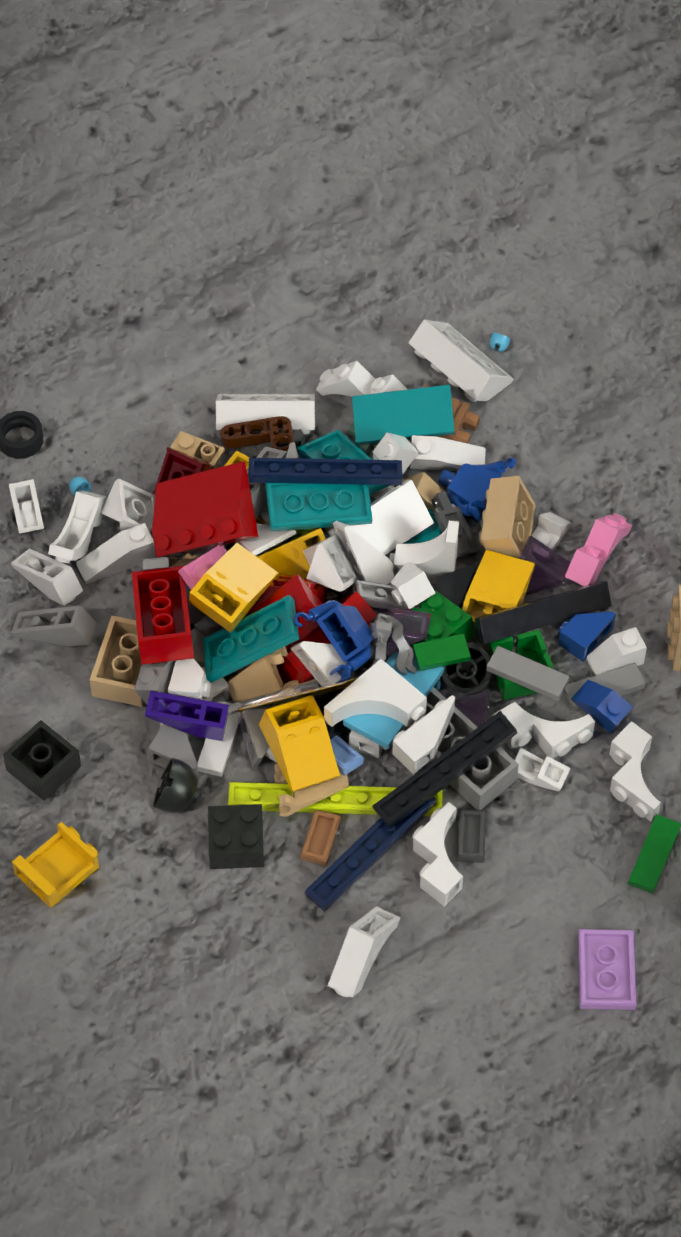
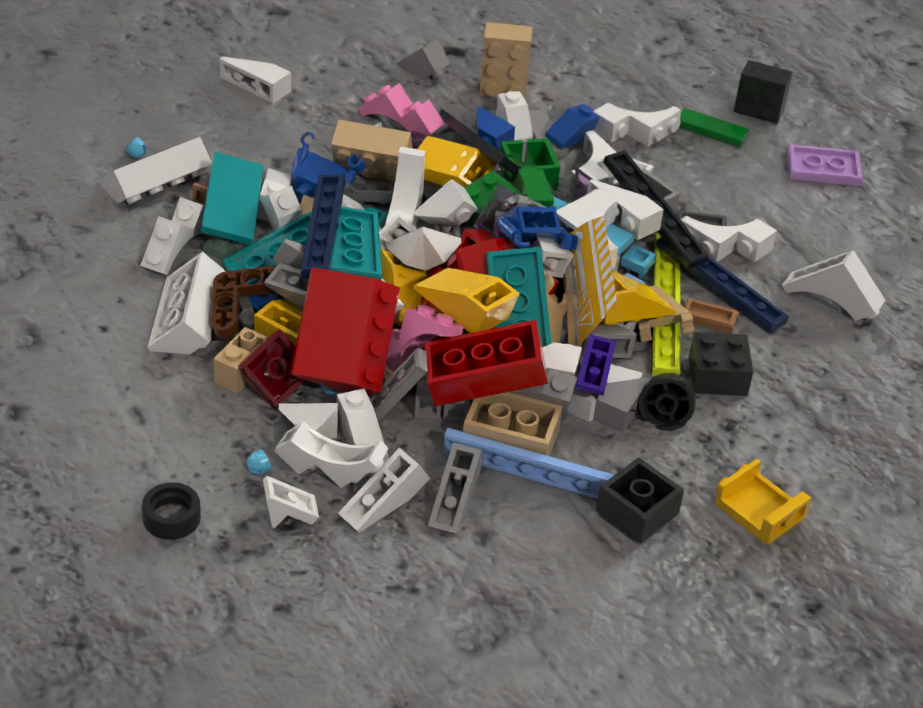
camera: 90 degrees left, 15 degrees down
(83, 690) = (531, 464): none -> light blue tile
(384, 767) = (638, 260): none -> medium azure tile
(527, 673) = (552, 148): light grey tile -> none
(634, 429) = (256, 77): none -> white slope

